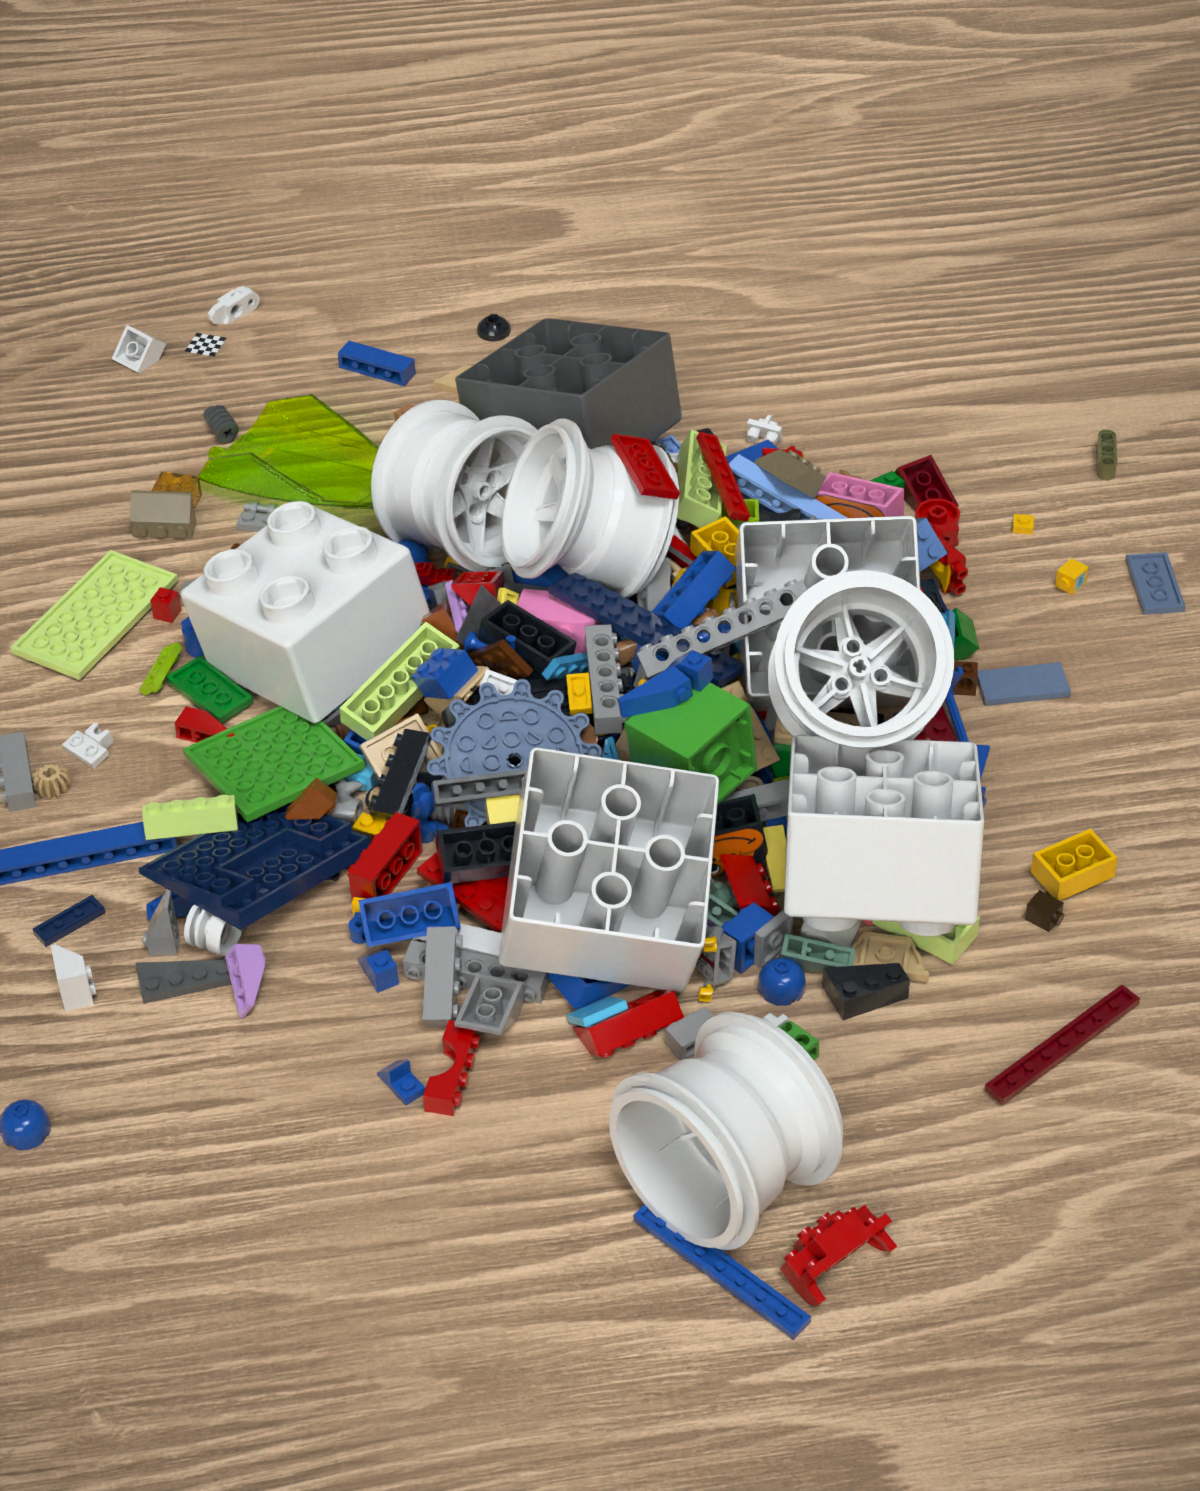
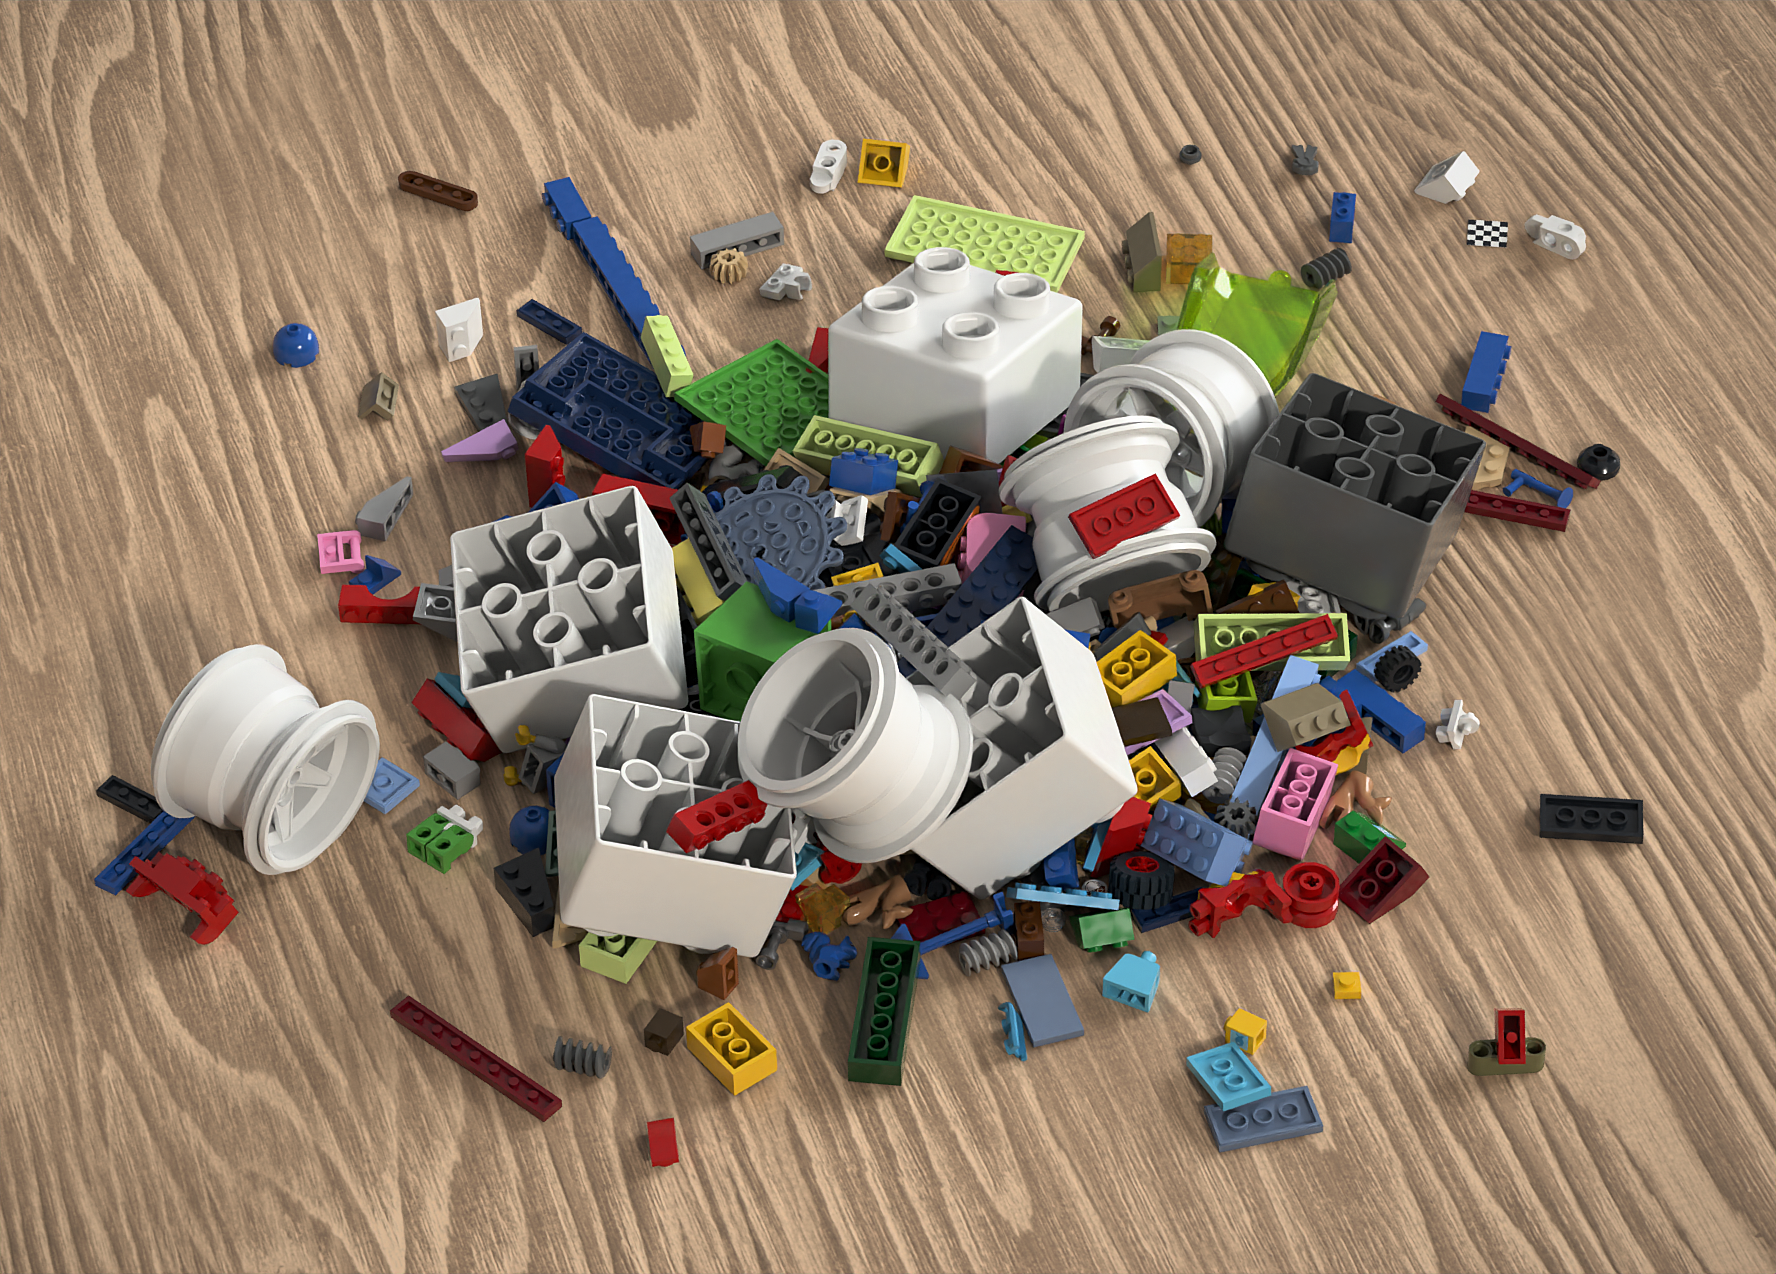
camera: 80 degrees right, 0 degrees up
(33, 481) = (1190, 154): none -> dark grey plate
(78, 421) = (1304, 162): none -> dark grey piece
(134, 1061) = (379, 396): none -> dark tan panel
(161, 407) = (1342, 217): none -> blue brick
(316, 1065) = (384, 510): none -> light grey slope
(318, 918) = (543, 465): none -> red slope
(358, 1110) = (332, 554): none -> bright pink plate
(455, 363) = (1524, 447): none -> dark red plate
(676, 1300) = (130, 798): none -> black tile
(873, 384) = (1591, 818): none -> black plate
(933, 760) = (716, 817): none -> red brick
(975, 704) = (986, 950): none -> light grey piece
(991, 861) = (719, 973): none -> dark orange slope
(1012, 627) = (1133, 981): none -> medium azure torso
(1043, 765) = (884, 1011): none -> dark green brick
(1052, 700) = (1014, 1029): none -> dark azure piece
(1072, 966) = (582, 1059): none -> dark grey piece
(1104, 436) = (1510, 1035): none -> red slope
(1120, 589) = (1228, 1076): none -> medium azure plate
(1168, 921) = (663, 1142): none -> red slope

